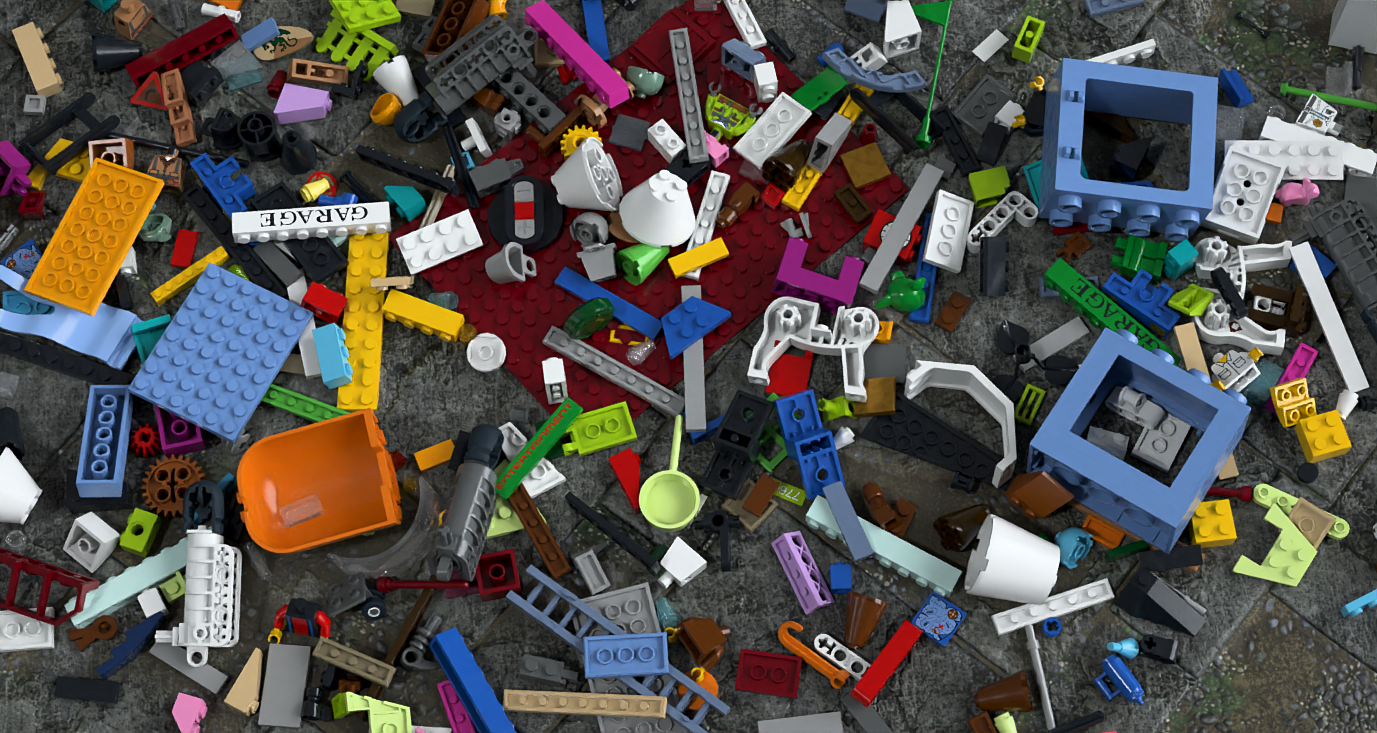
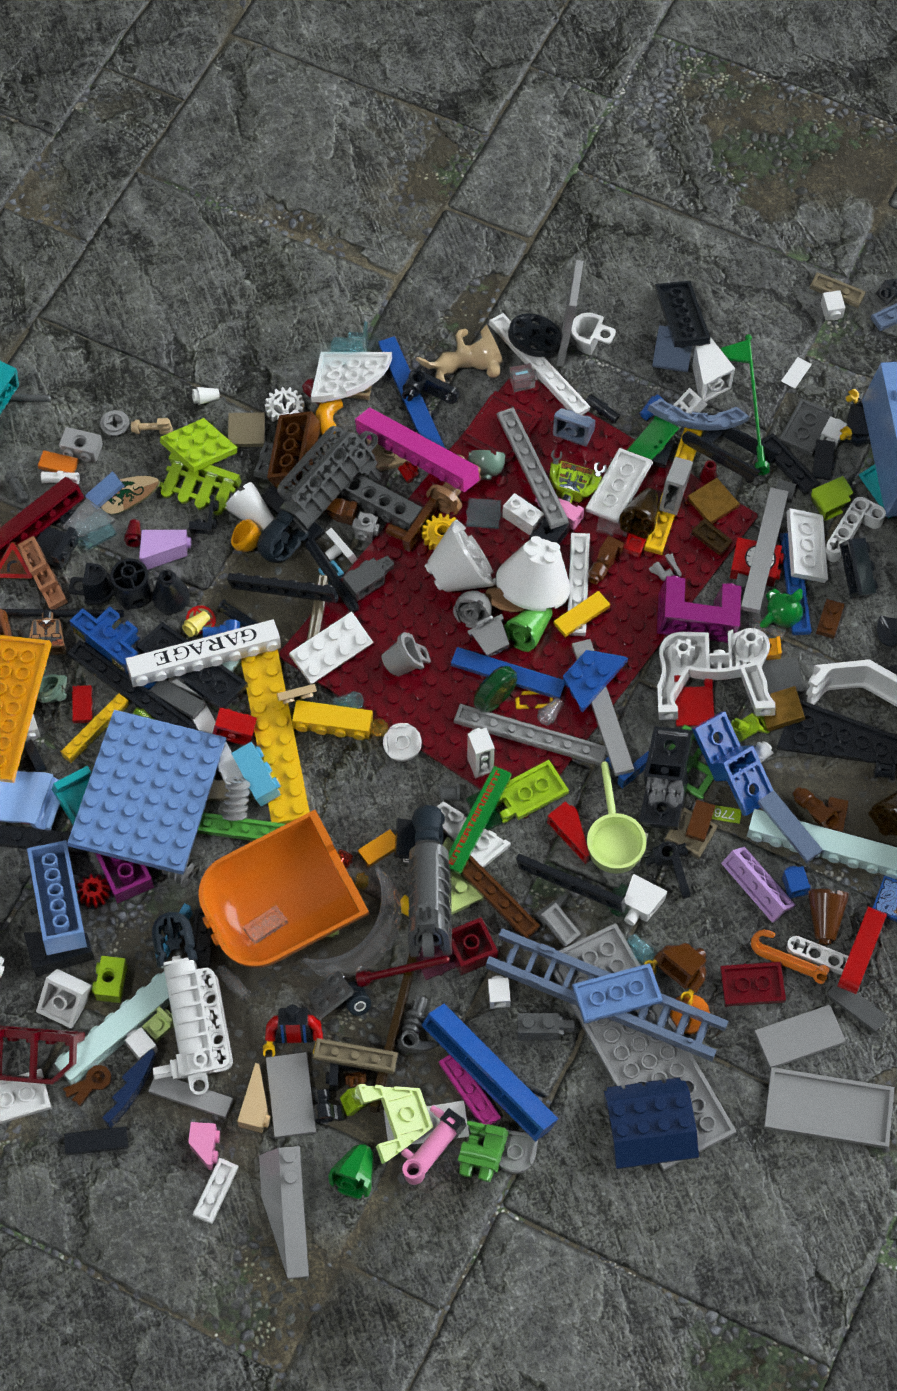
camera: 15 degrees left, 5 degrees down
(155, 488) = (115, 933): dark orange gear -> none
(305, 377) = (237, 799): none -> light grey piece
(316, 73) = (167, 515): medium nougat slope -> none
(407, 201) = (288, 616): teal slope -> none
(513, 627) = (499, 992): none -> white brick
(525, 215) = (405, 606): black piece -> none
(584, 704) = (588, 1048): tan tile -> none
(765, 82) = (601, 442): white brick -> none
(1028, 39) = (831, 359): lime brick -> none

